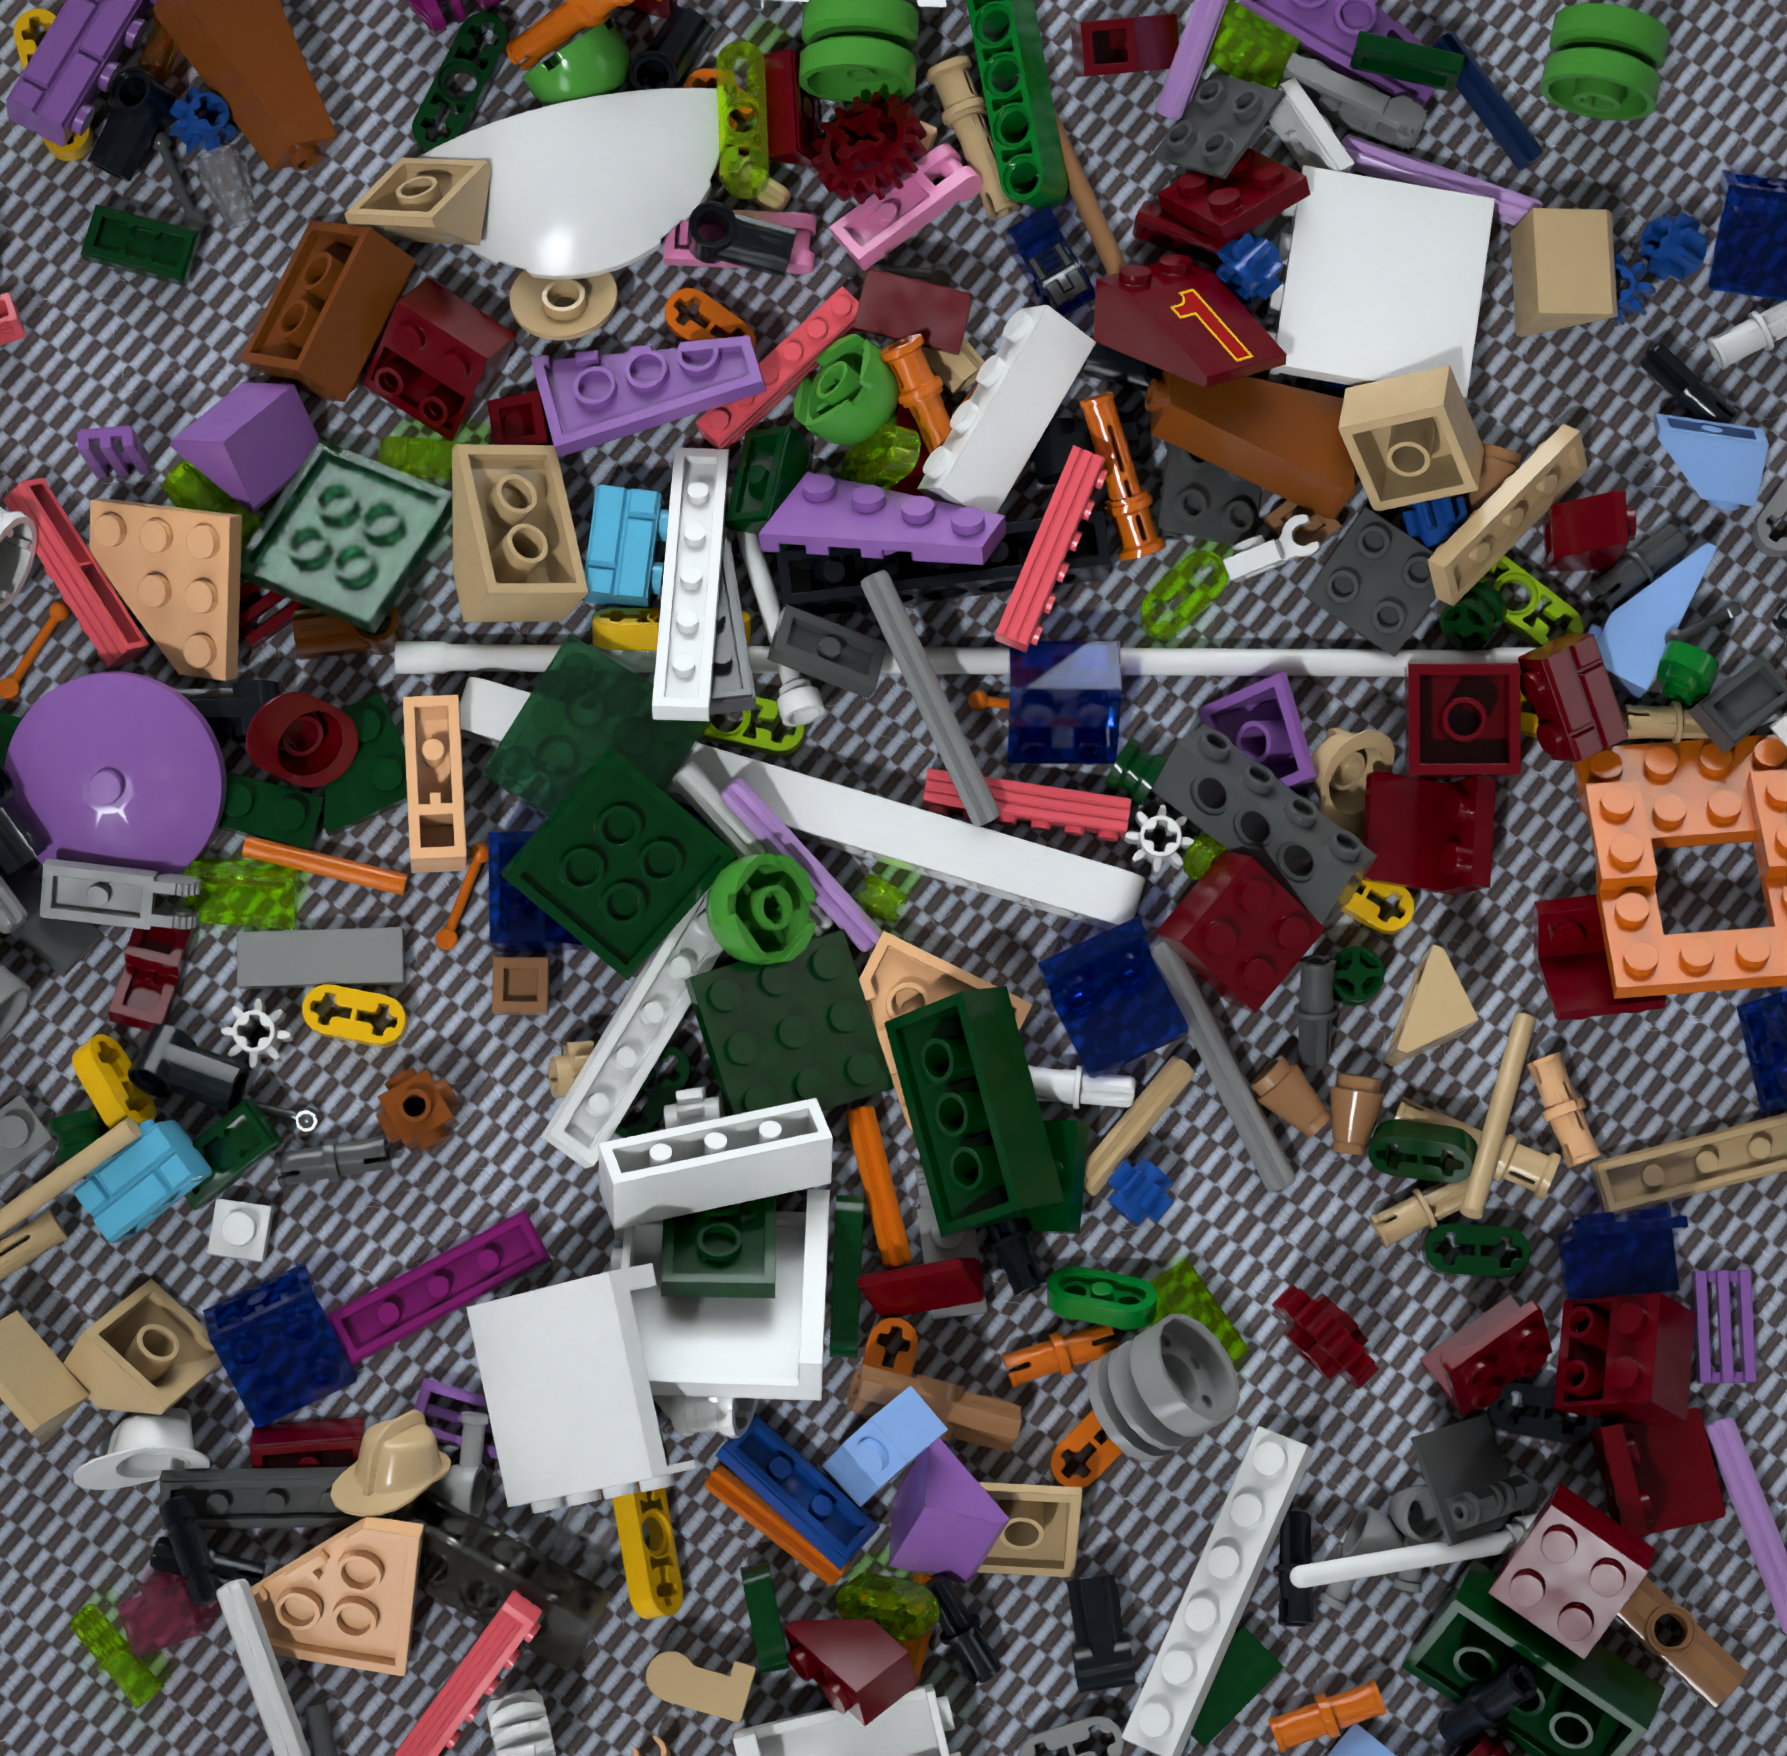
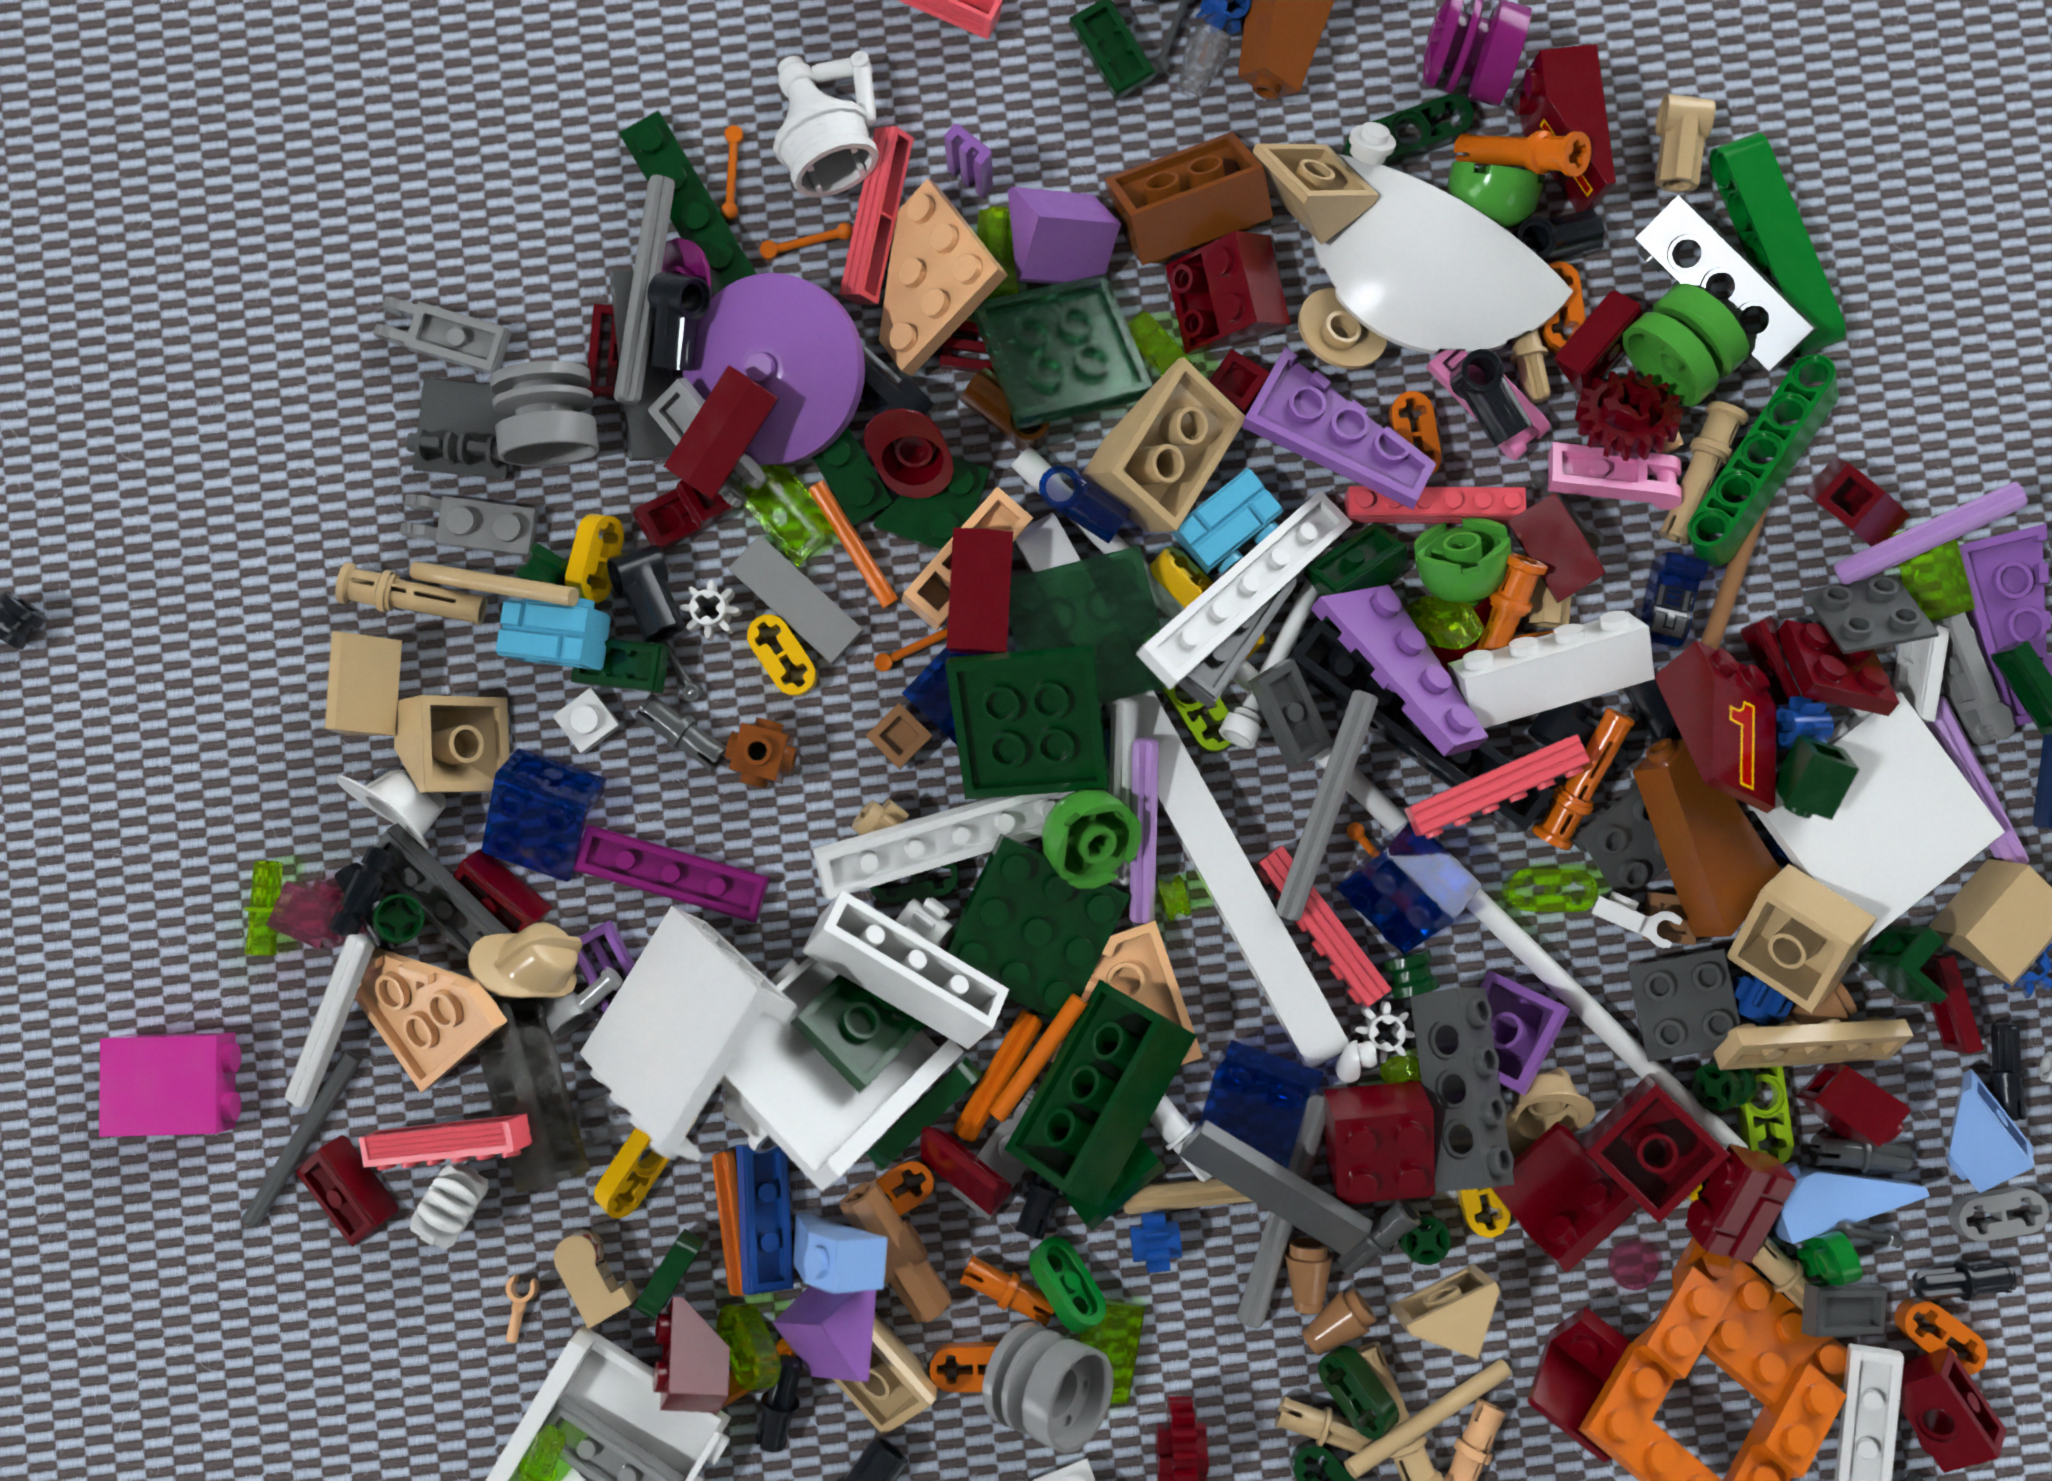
camera: 45 degrees right, 5 degrees up
(127, 870) = (721, 432): none -> dark red piece
(251, 1532) = (402, 914): none -> dark green wheel
(439, 123) = (1371, 143): none -> white plate
(473, 793) = (979, 591): none -> dark red piece
(491, 642) = (1087, 504): none -> clear blue piece
(726, 104) = (1566, 302): clear neon green beam -> none
(896, 1135) = (1038, 1057): none -> orange bar
(1152, 883) = (1353, 1058): none -> white arm
(1191, 1048) = (1275, 1188): none -> dark grey tile
(1294, 301) = (1815, 778): none -> dark green brick
(1511, 390) = (1896, 961): none -> dark green panel
(1547, 834) = (1632, 1265): none -> clear pink piece
(1589, 378) = (1954, 1014): none -> dark red tile

